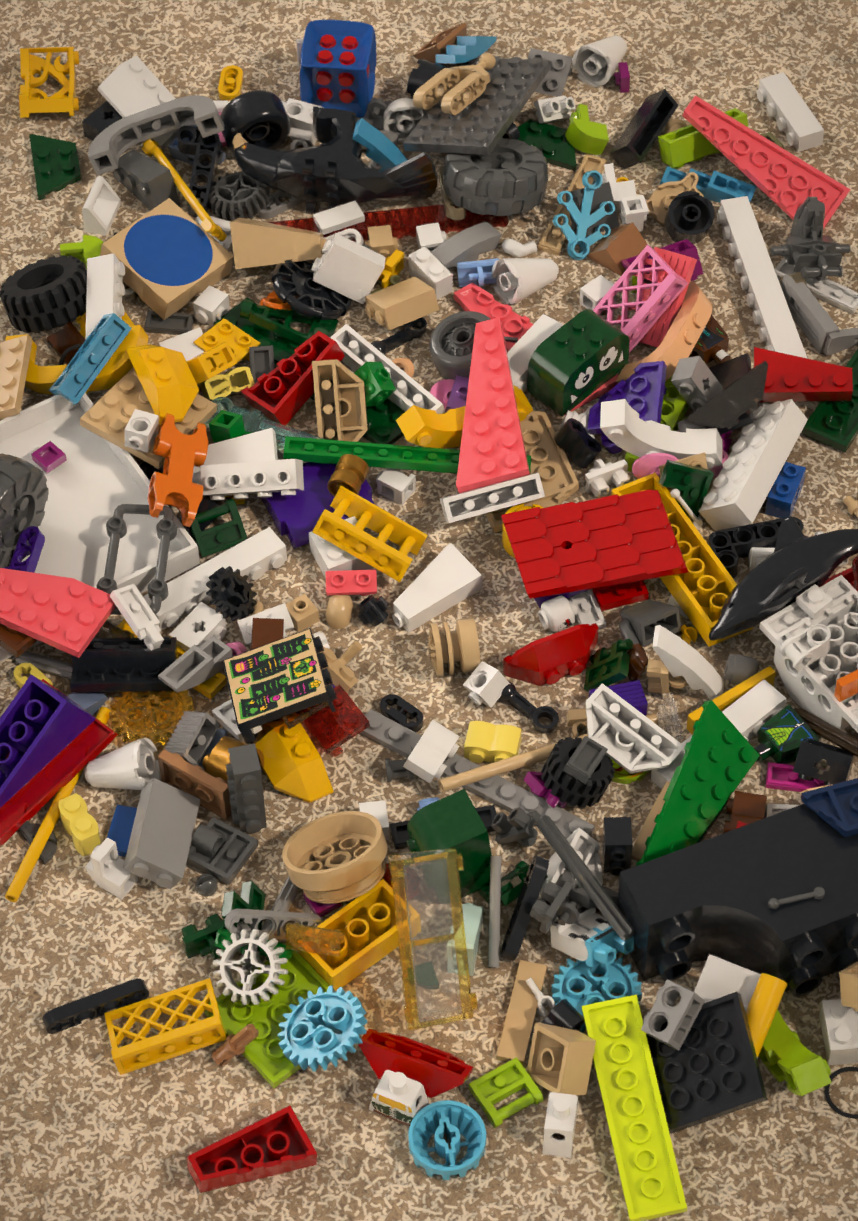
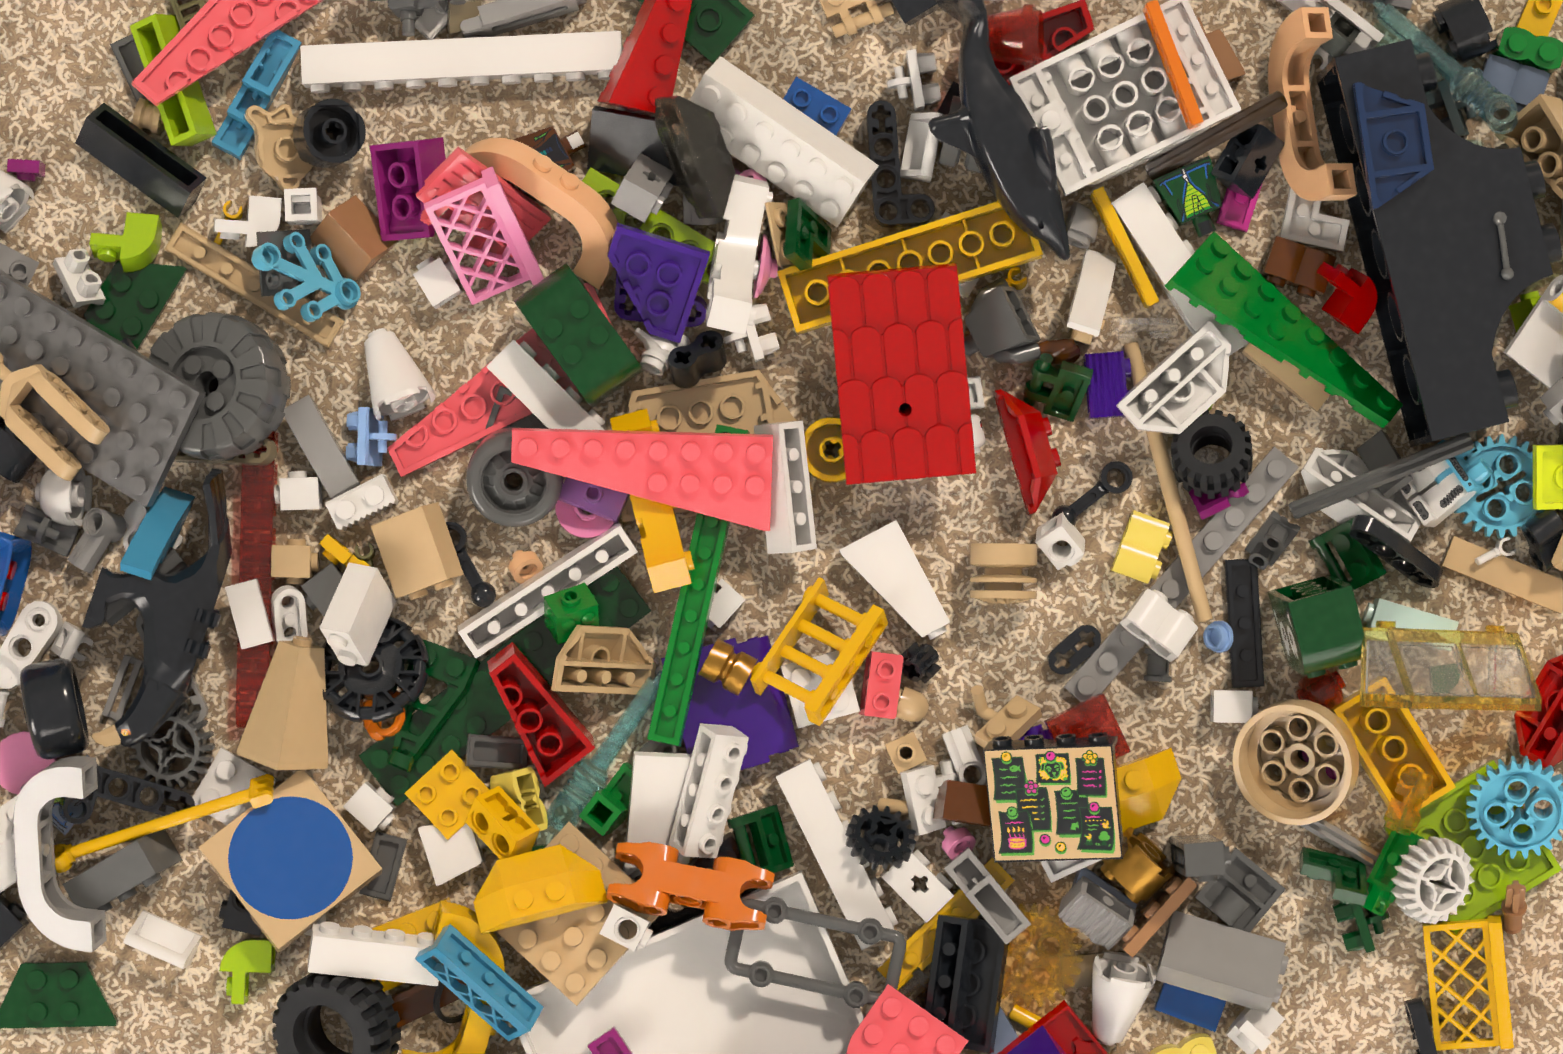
camera: 80 degrees left, 35 degrees up
(138, 615) = (917, 961): white hinge -> none
(208, 885) = (1274, 916): dark grey hinge -> none
(277, 921) = (1371, 842): light grey beam -> none
(494, 911) = (1392, 586): light grey bar -> none
(517, 249) = (329, 376): white arm -> none
(559, 908) = (1419, 514): dark grey hips -> none
(576, 718) = (1121, 435): tan tile -> none
(585, 759) = (1217, 444): dark grey tile -> none
(616, 844) = (1322, 427): black brick -> none
(697, 521) = (820, 252): white hinge -> none
(804, 648) = (1126, 149): white piece -> none

